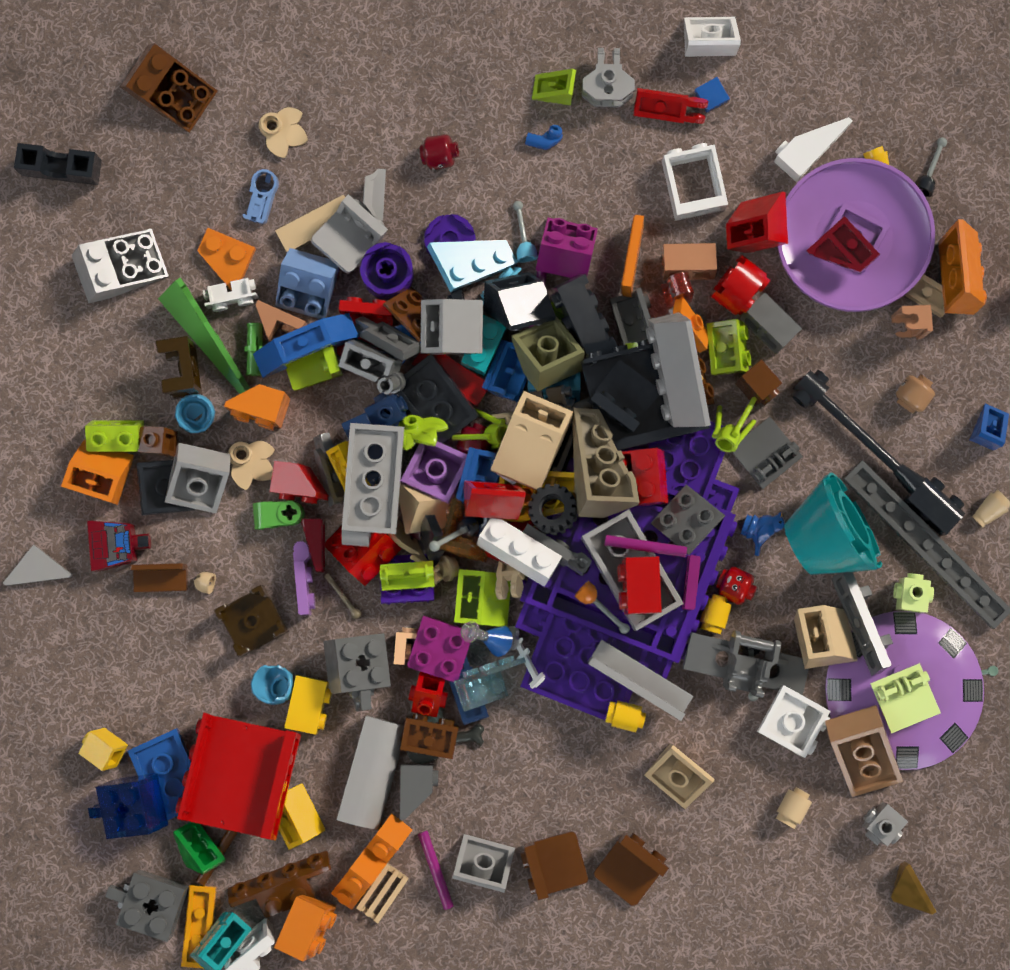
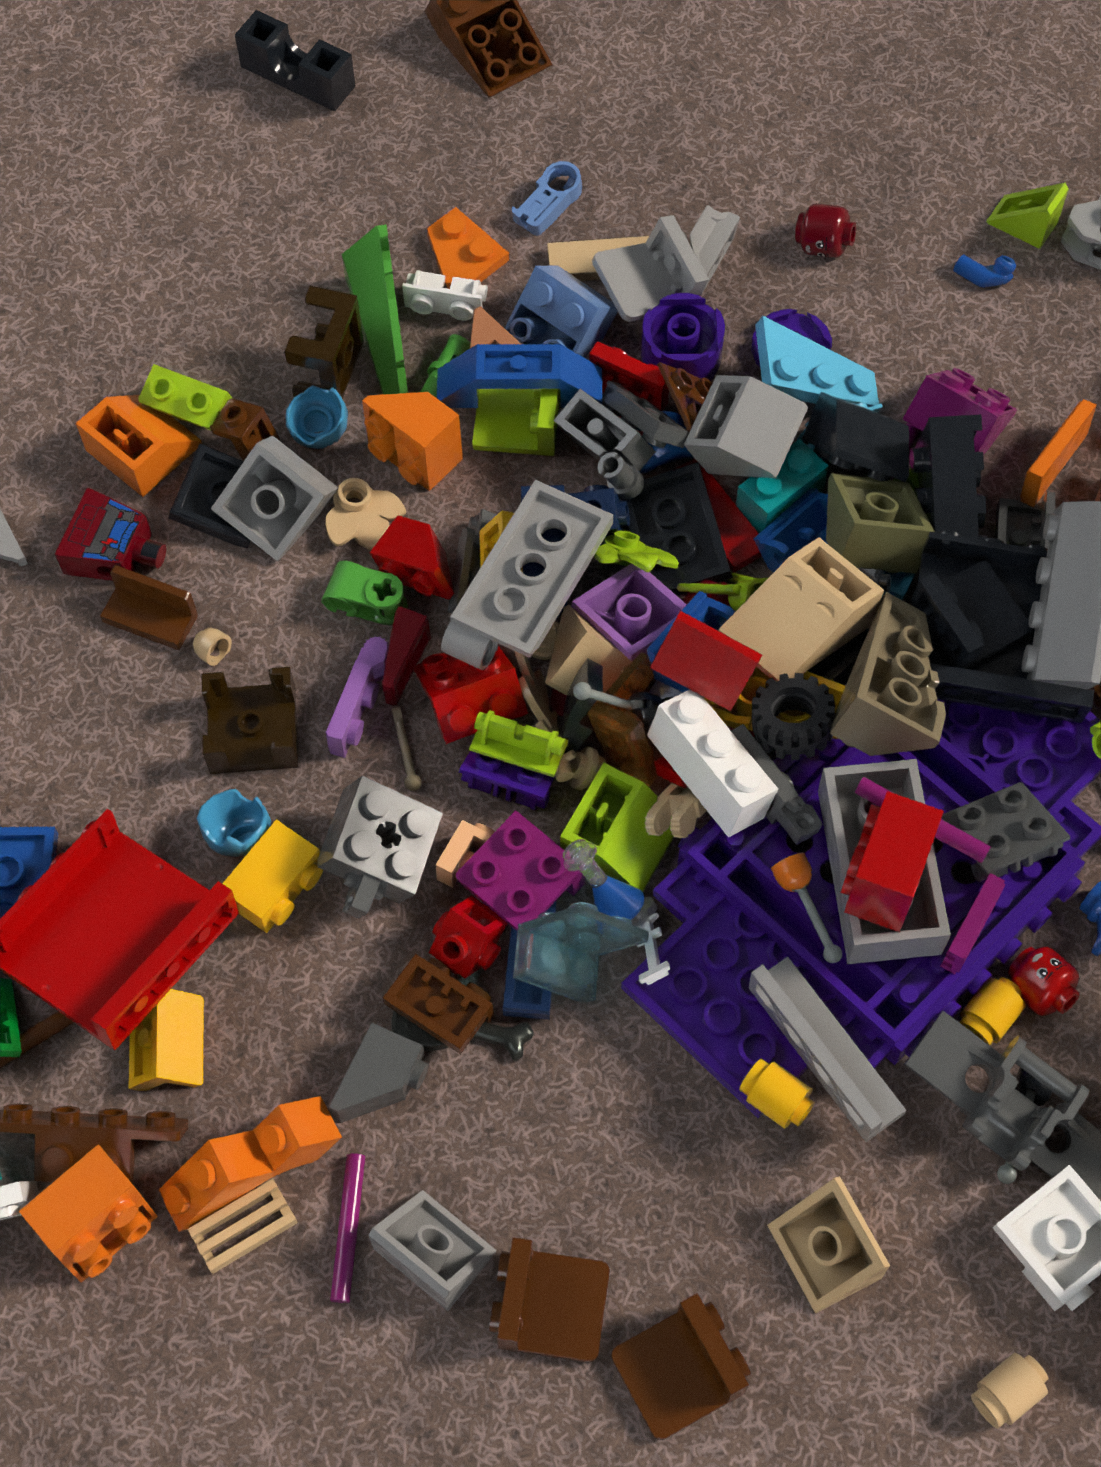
camera: 25 degrees right, 20 degrees down
(118, 264) = (308, 203): light grey slope -> none
(286, 133) = (619, 139): tan plate -> none
(371, 773) = (318, 1022): light grey brick -> none
(526, 251) = (899, 392): hinge -> none
(650, 475) = (966, 740): red slope -> none

